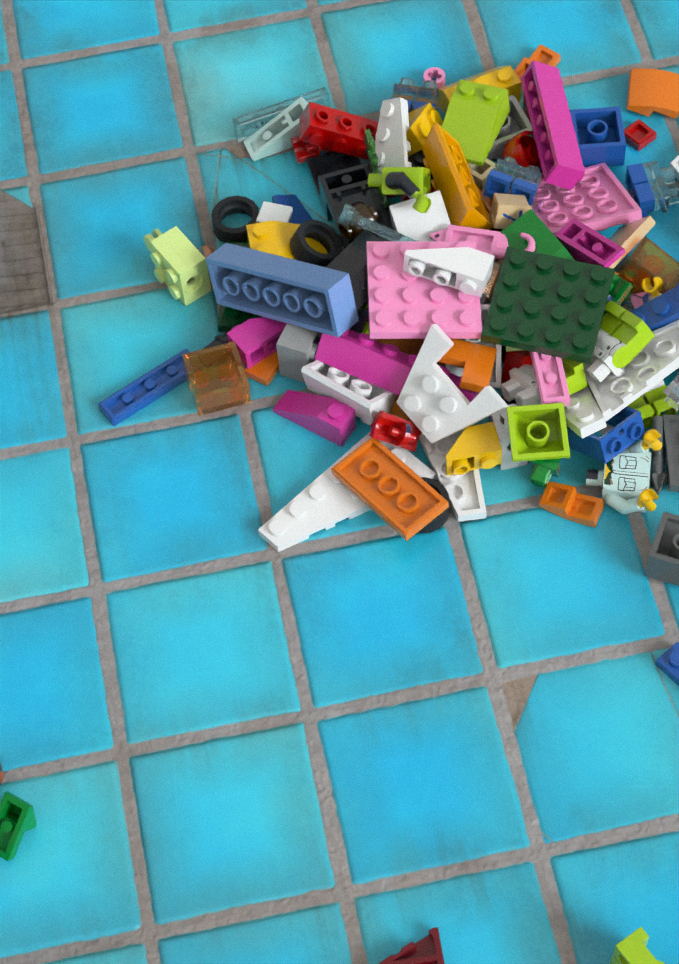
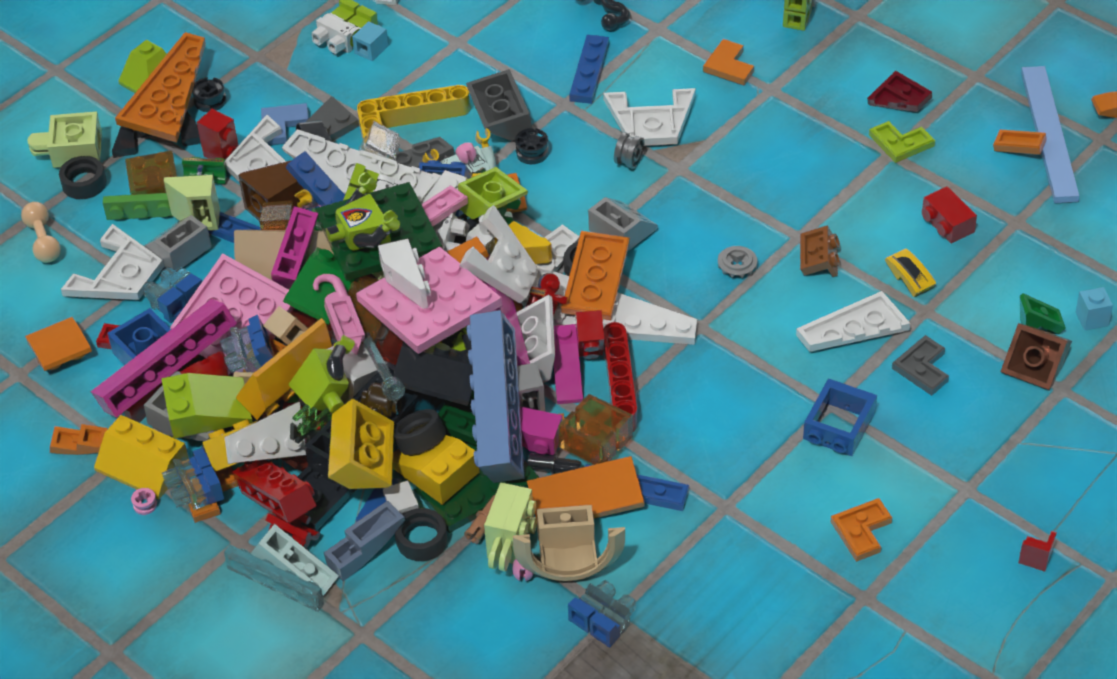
camera: 130 degrees left, 10 degrees down
(64, 291) = (601, 613): none -> hips
(67, 686) = (918, 367): none -> dark grey tile
(78, 595) = (848, 399): none -> blue window
(128, 296) = (567, 545): none -> tan piece
(146, 263) = (519, 571): none -> bright pink hinge
(155, 670) = (857, 322): none -> white wing
(171, 767) = (911, 270): none -> yellow slope
(173, 333) = (606, 486): none -> orange tile
(204, 860) = (949, 214): none -> red brick
(257, 432) = (619, 369): none -> red beam
(259, 174) = (363, 540): none -> sand blue slope
(263, 706) = (819, 251): none -> dark orange bracket
(306, 627) = (737, 254): none -> light grey gear
(319, 183) = (361, 447): none -> yellow slope
(320, 433) = (590, 334): none -> red brick
(347, 905) = (901, 146): none -> lime tile
(445, 560) = (619, 219): none -> light grey slope
(539, 631) = (628, 150): none -> flat silver wheel
(545, 272) = (361, 219): none -> lime torso
(570, 685) = (654, 123): none -> white wing
(611, 826) = (725, 65): none -> orange tile
(624, 560) = (531, 148): none -> black wheel
(635, 472) = (466, 152): none -> bright pink hinge

